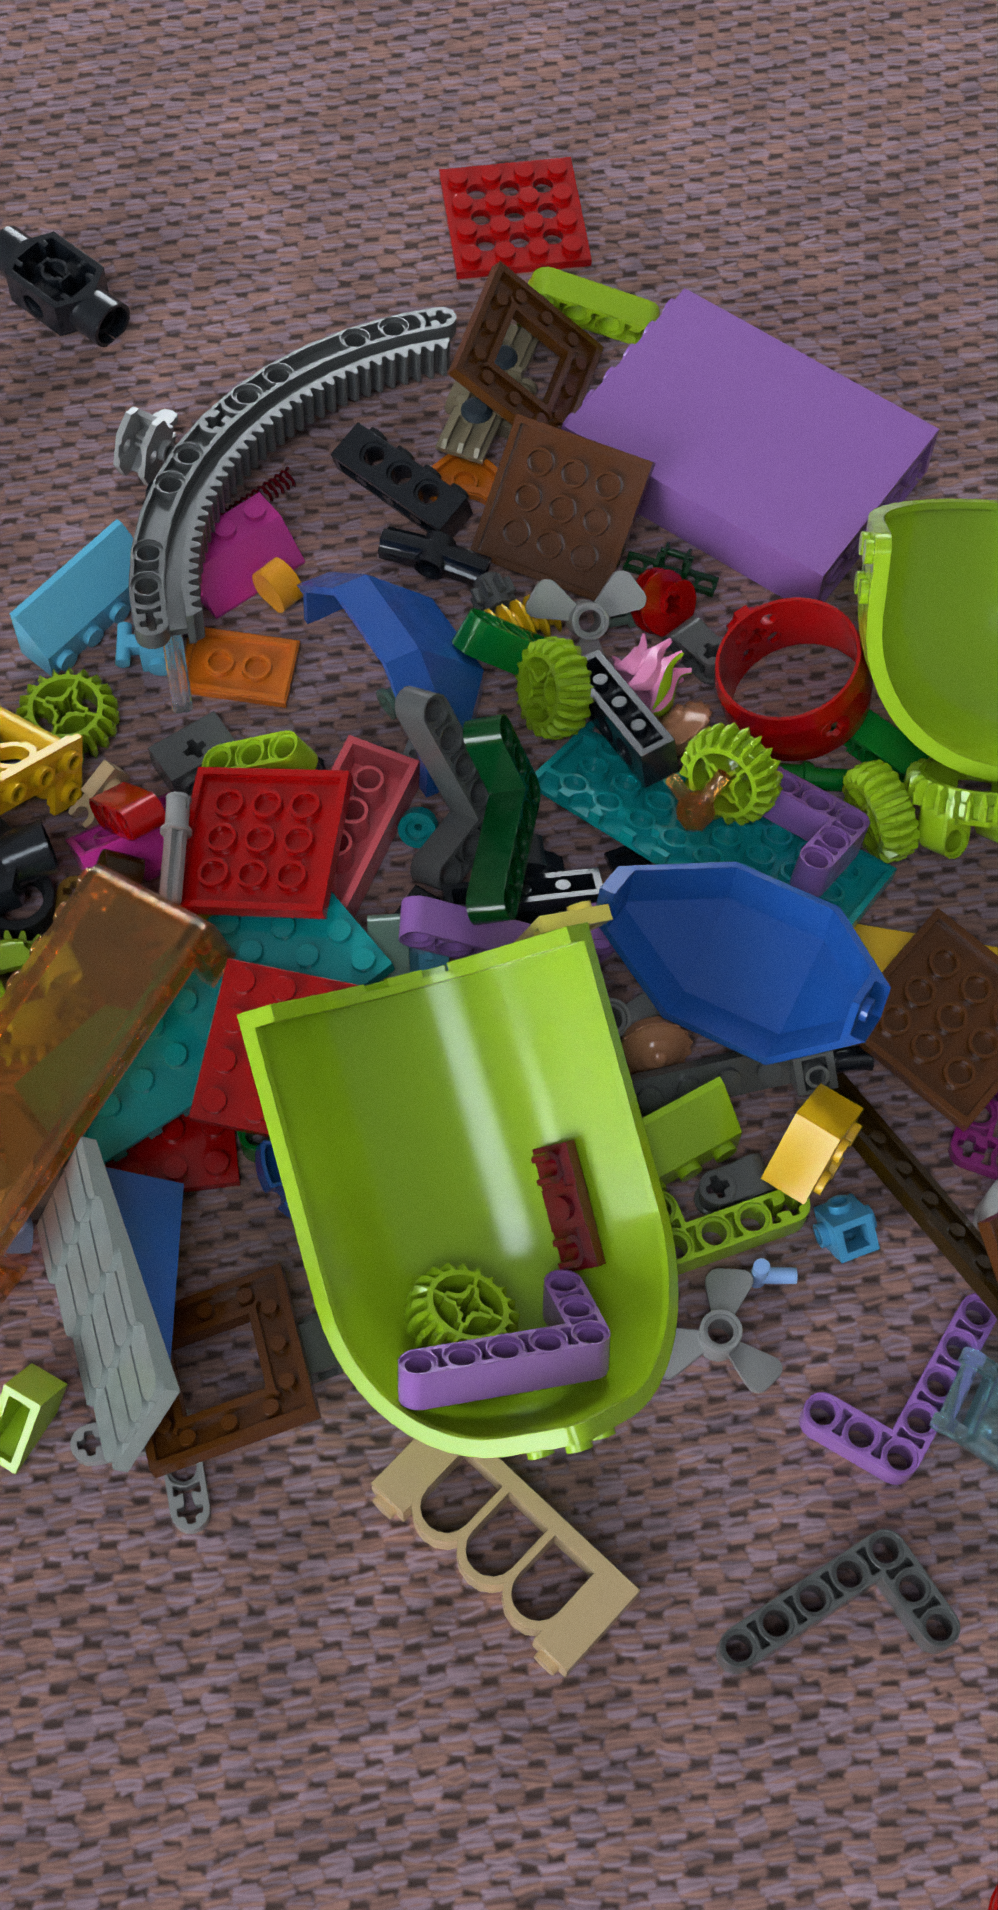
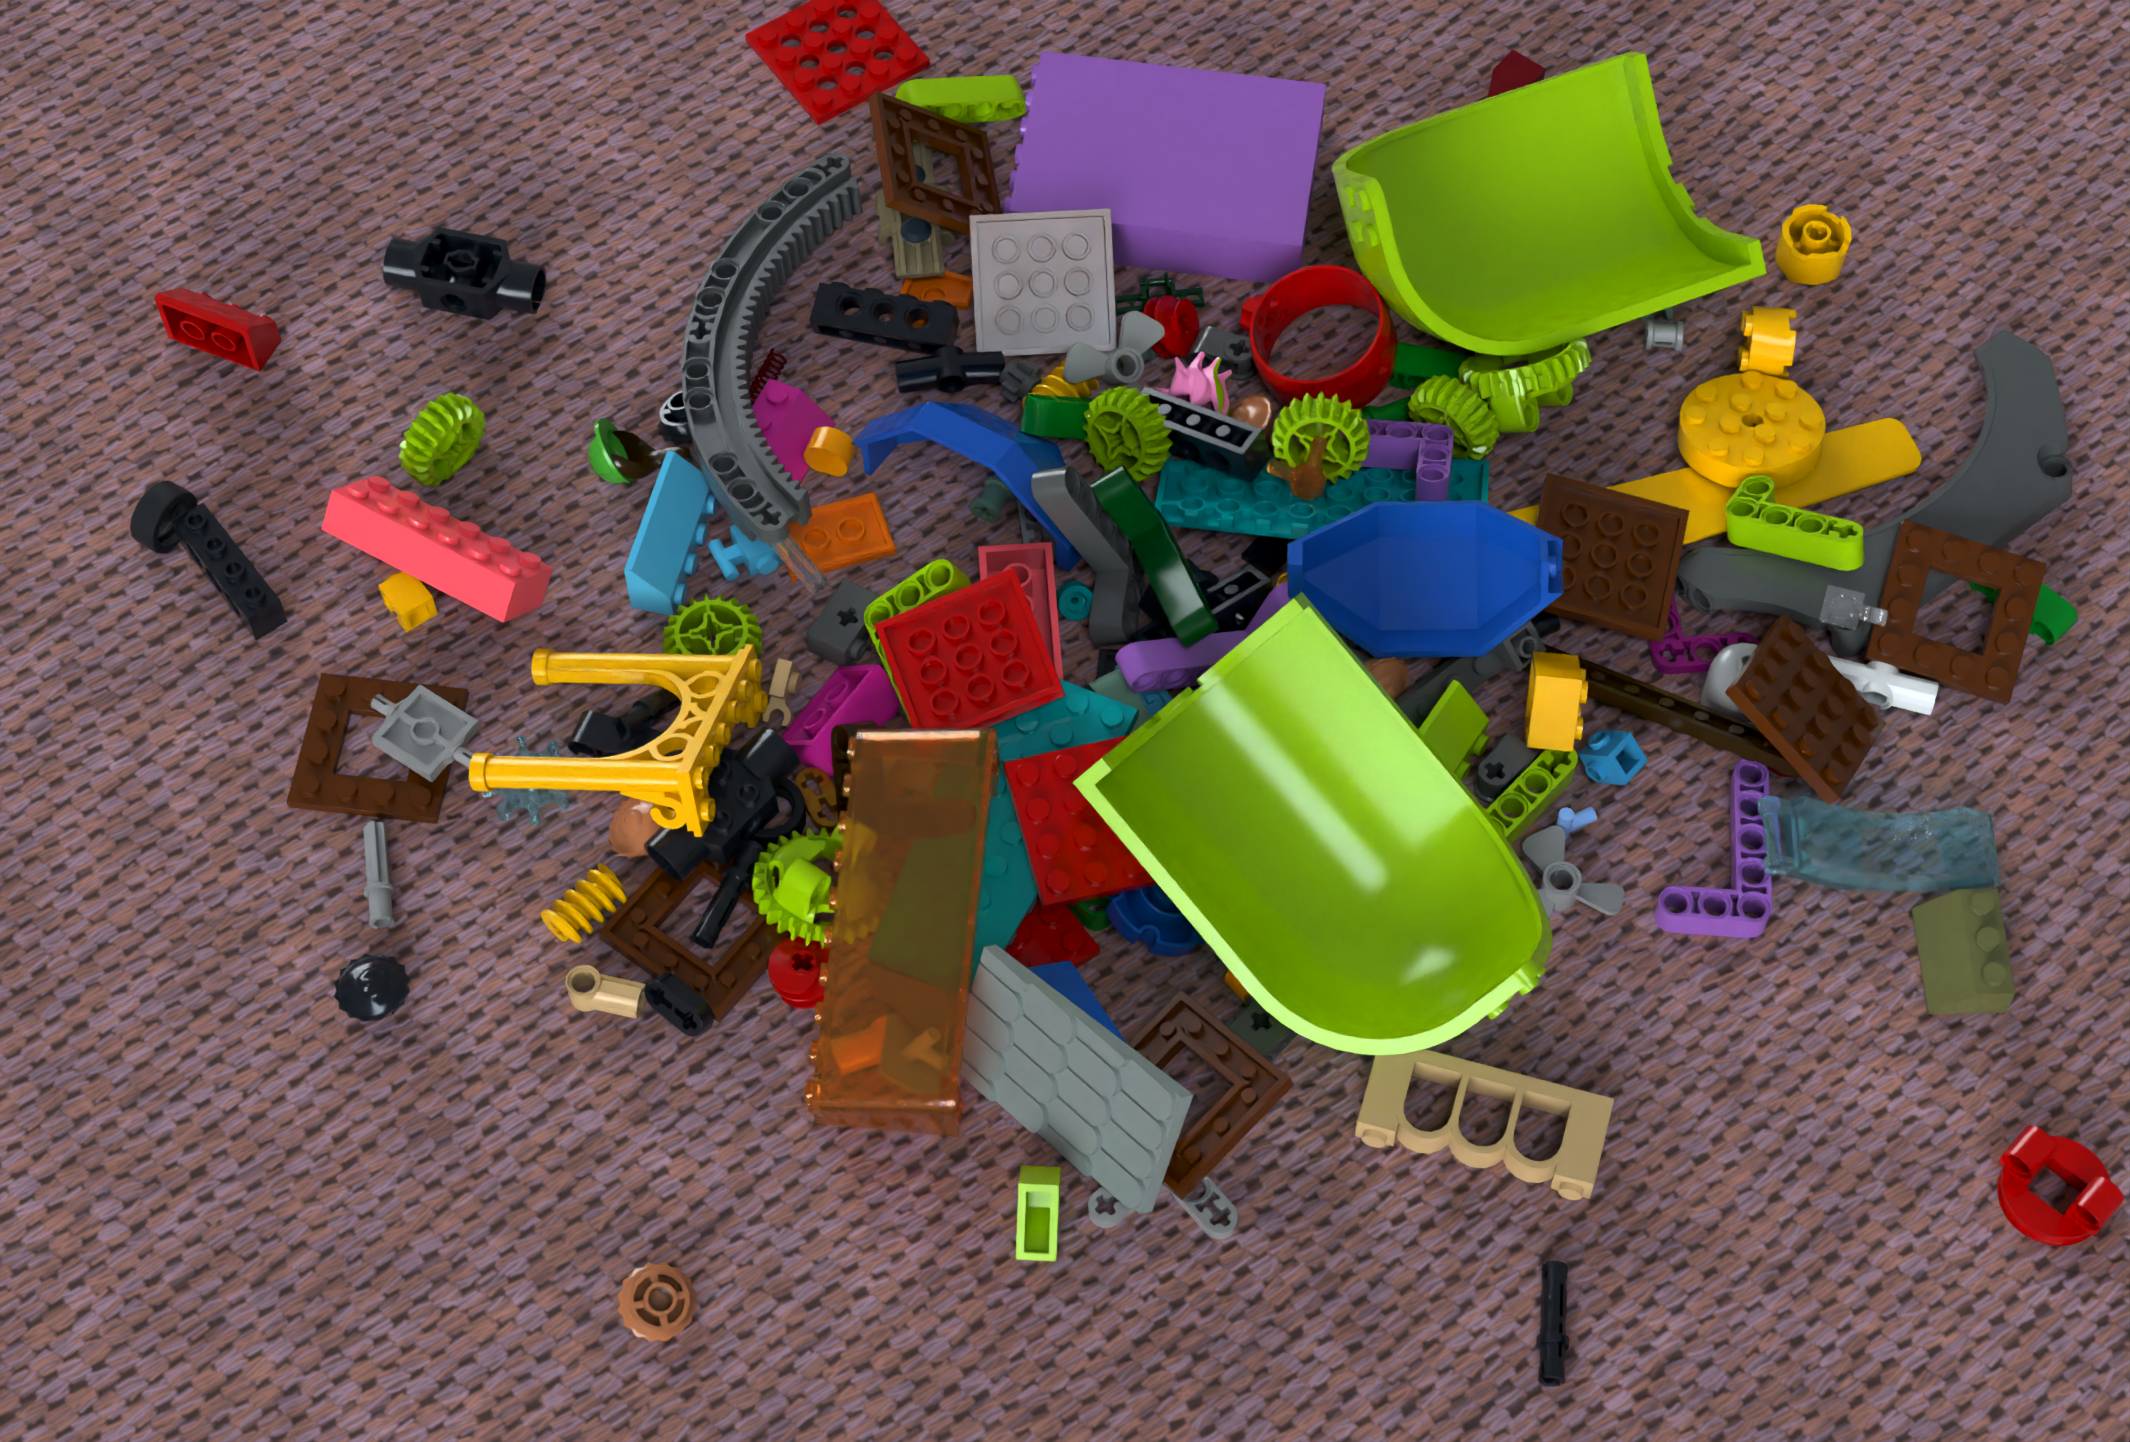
camera: 25 degrees left, 5 degrees down
(90, 504) = (623, 455): none -> piece
(128, 811) = (830, 689): red beam -> none
(146, 441) = (637, 379): light grey hinge -> none
(175, 834) = (896, 686): light grey axle -> none
(443, 1803) = (1552, 1337): none -> black pin
(457, 1307) = (1355, 960): lime gear -> none
(563, 1353) = (1453, 939): medium lavender beam -> none
(568, 1206) = (1390, 836): dark red plate -> none
(575, 914) = (1277, 598): light yellow wing -> none
(835, 1596) = (1758, 1035): dark grey beam -> none

